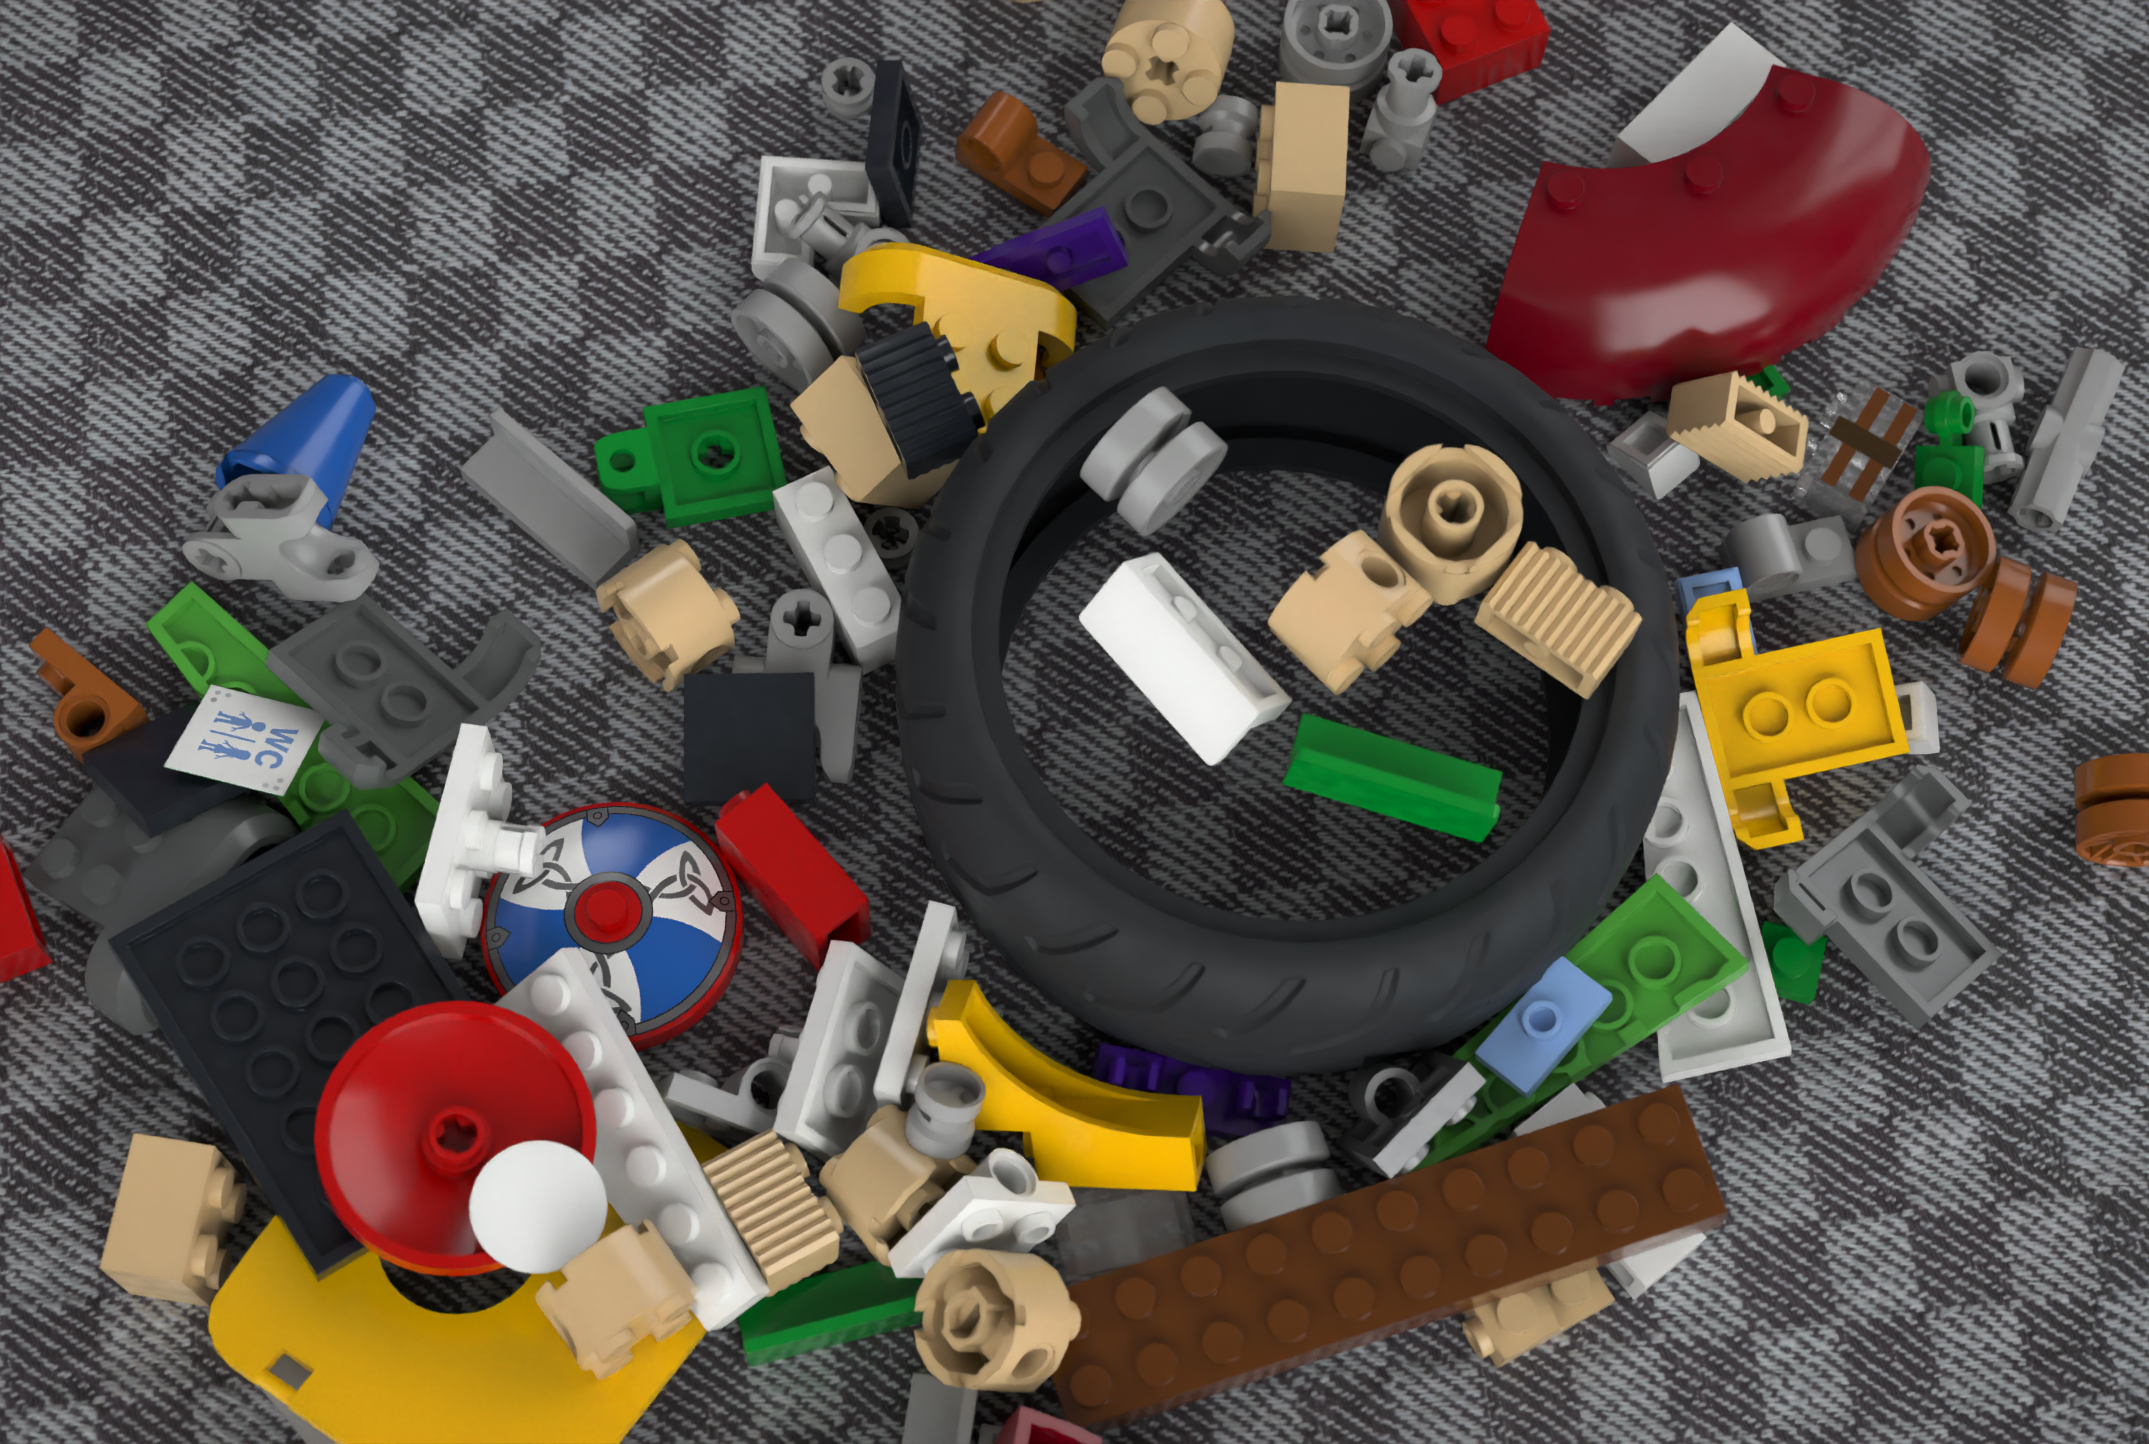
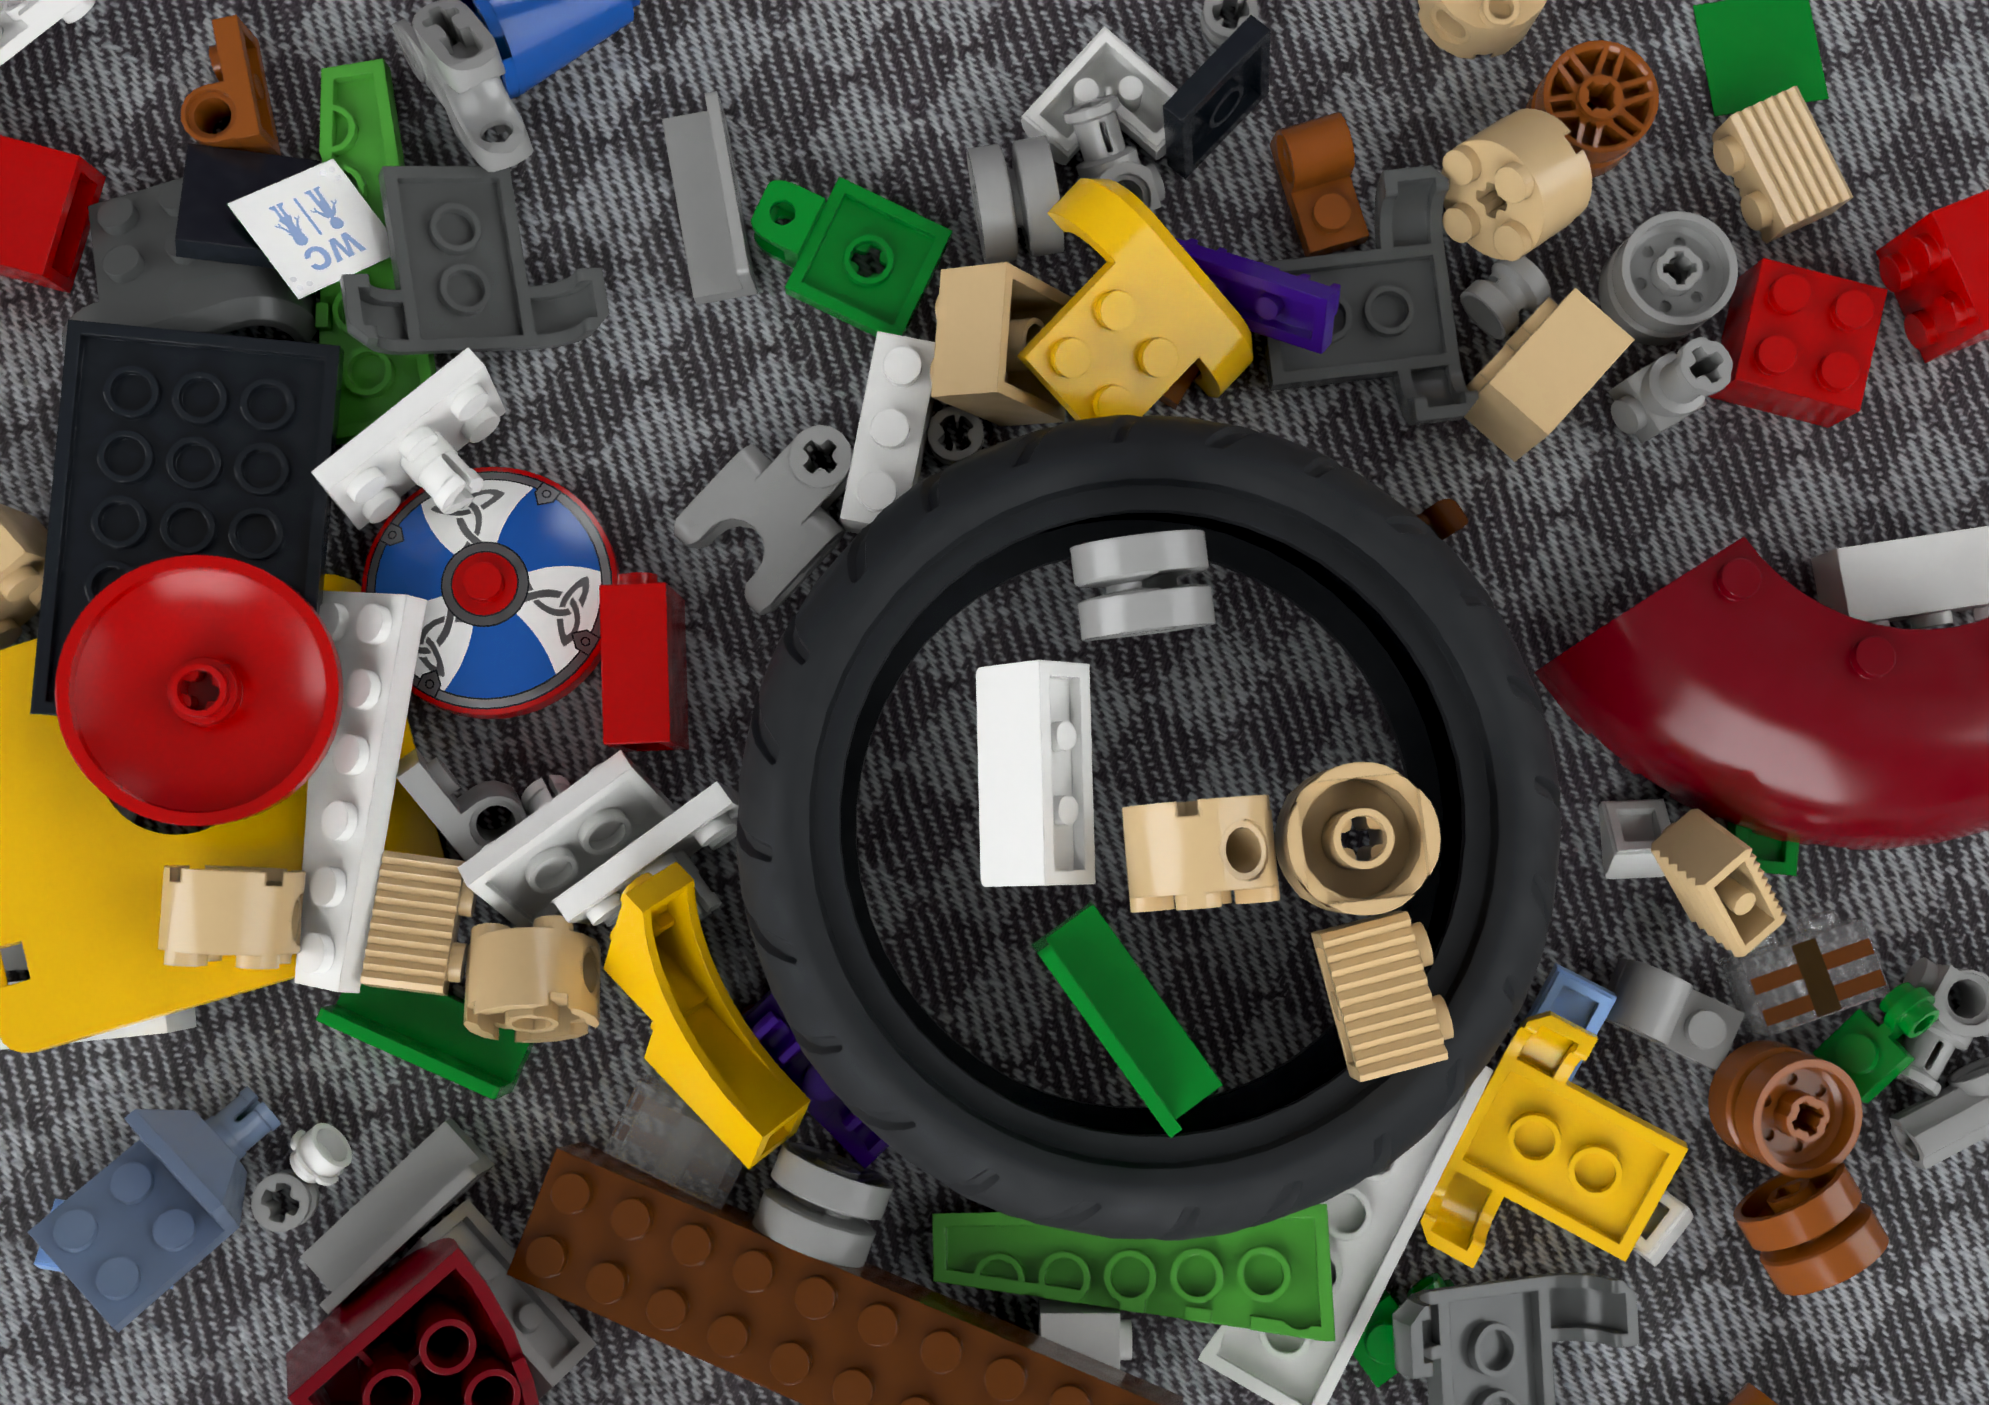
camera: 40 degrees right, 15 degrees up
(538, 1206) = (216, 798): white sticker -> none
(669, 614) = (716, 372): tan brick -> none
(749, 734) = (700, 526): black tile -> none
(919, 398) = (1030, 353): black brick -> none
(944, 1110) = (597, 950): light grey wheel -> none
(990, 1209) = (561, 1068): white plate -> none
(994, 1320) = (506, 1153): tan brick -> none
(1429, 1094) = (955, 1252): flat silver plate -> none
(1543, 1027) = (1110, 1265): light blue plate -> none

